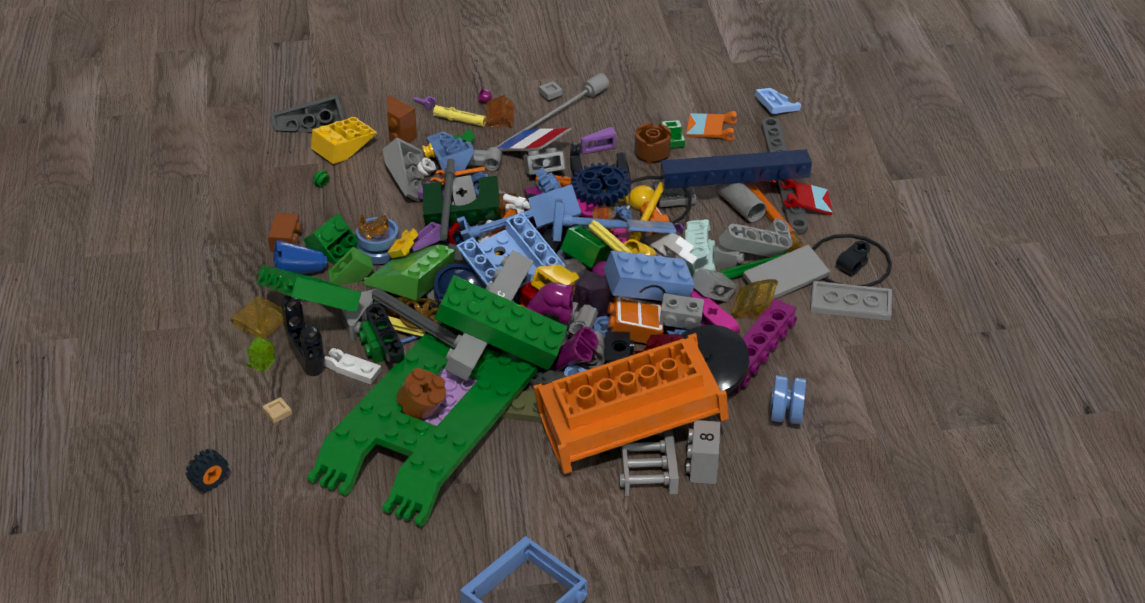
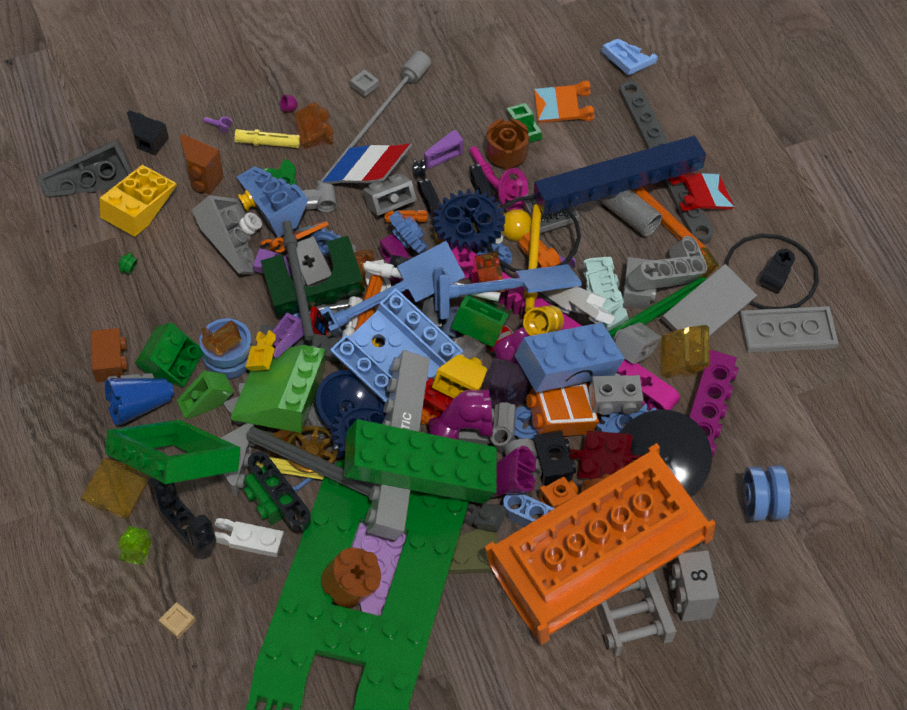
camera: 15 degrees left, 15 degrees up
(367, 99) = (148, 133): none -> black slope
(607, 237) = (510, 310): light yellow axle -> none
(642, 168) = (507, 188): none -> dark pink dish

